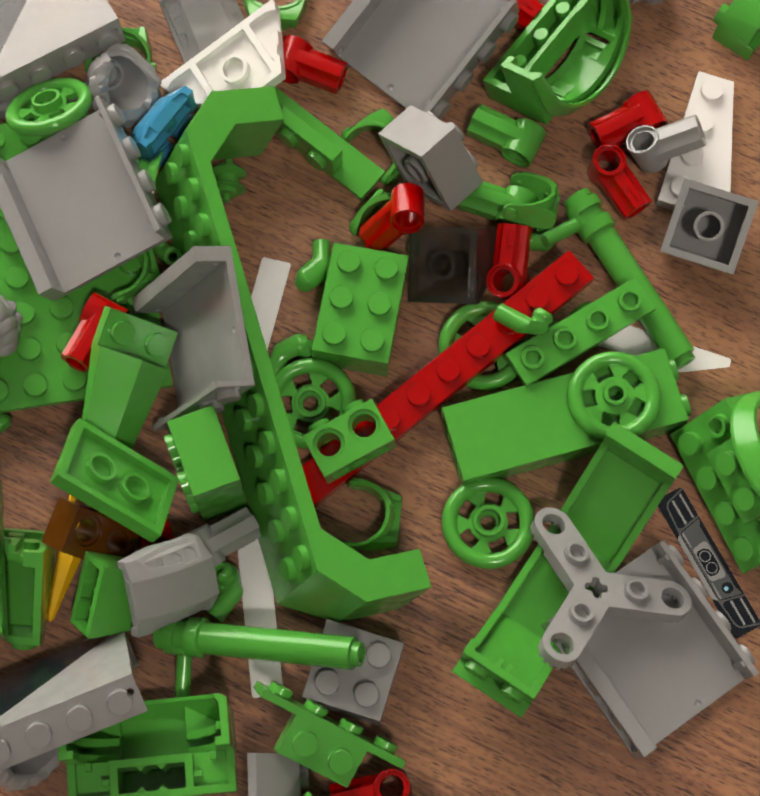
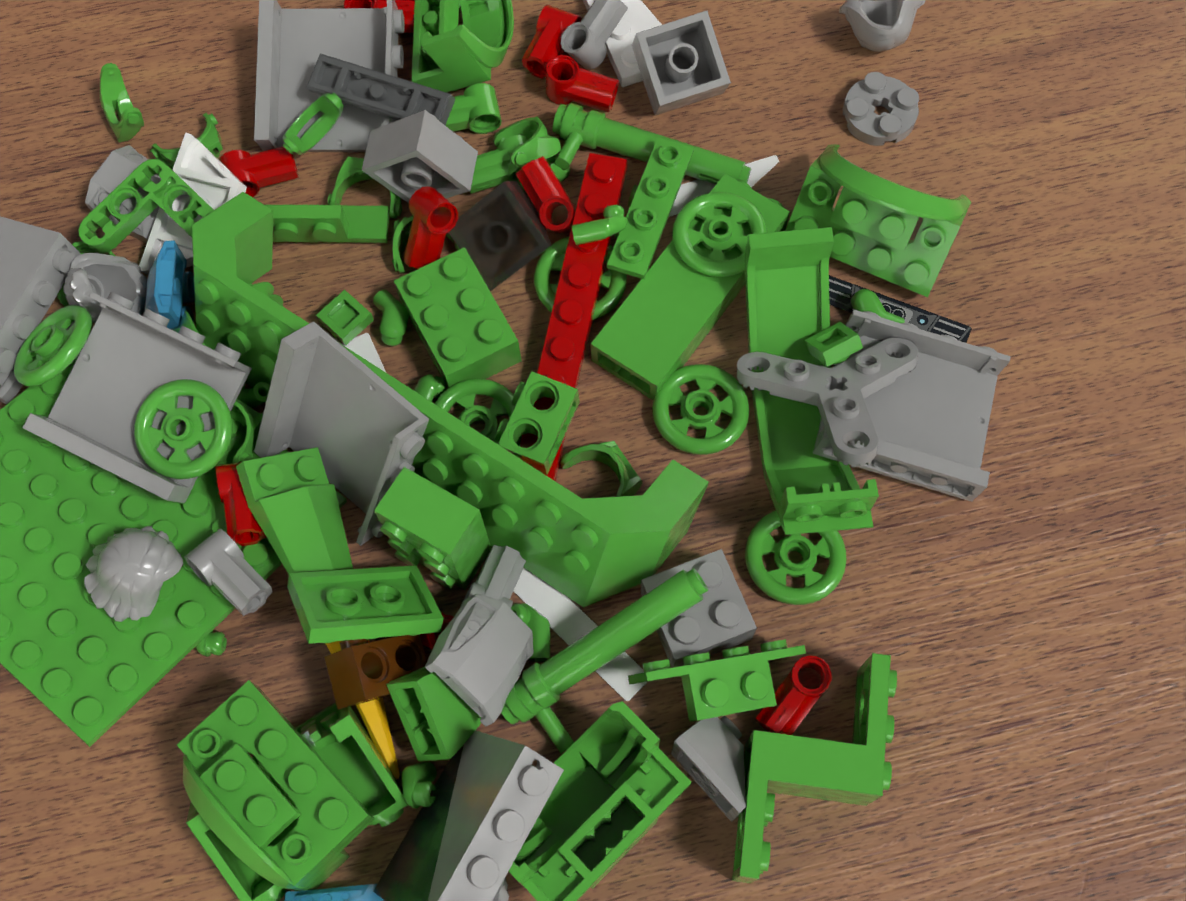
camera: 35 degrees left, 5 degrees down
(42, 374) = (223, 565): none -> light grey piece
(54, 636) = (418, 784): none -> bright green arm
(62, 235) = (214, 441): none -> bright green plate
(214, 39) = (159, 195): none -> bright green beam
(280, 240) = (345, 317): none -> bright green plate
(353, 67) = (331, 108): none -> bright green helmet
(429, 698) = (774, 582): none -> bright green plate
(444, 76) = (377, 90): none -> dark grey plate
(625, 554) = (834, 344): none -> bright green plate
(688, 544) = (868, 301): none -> bright green arm

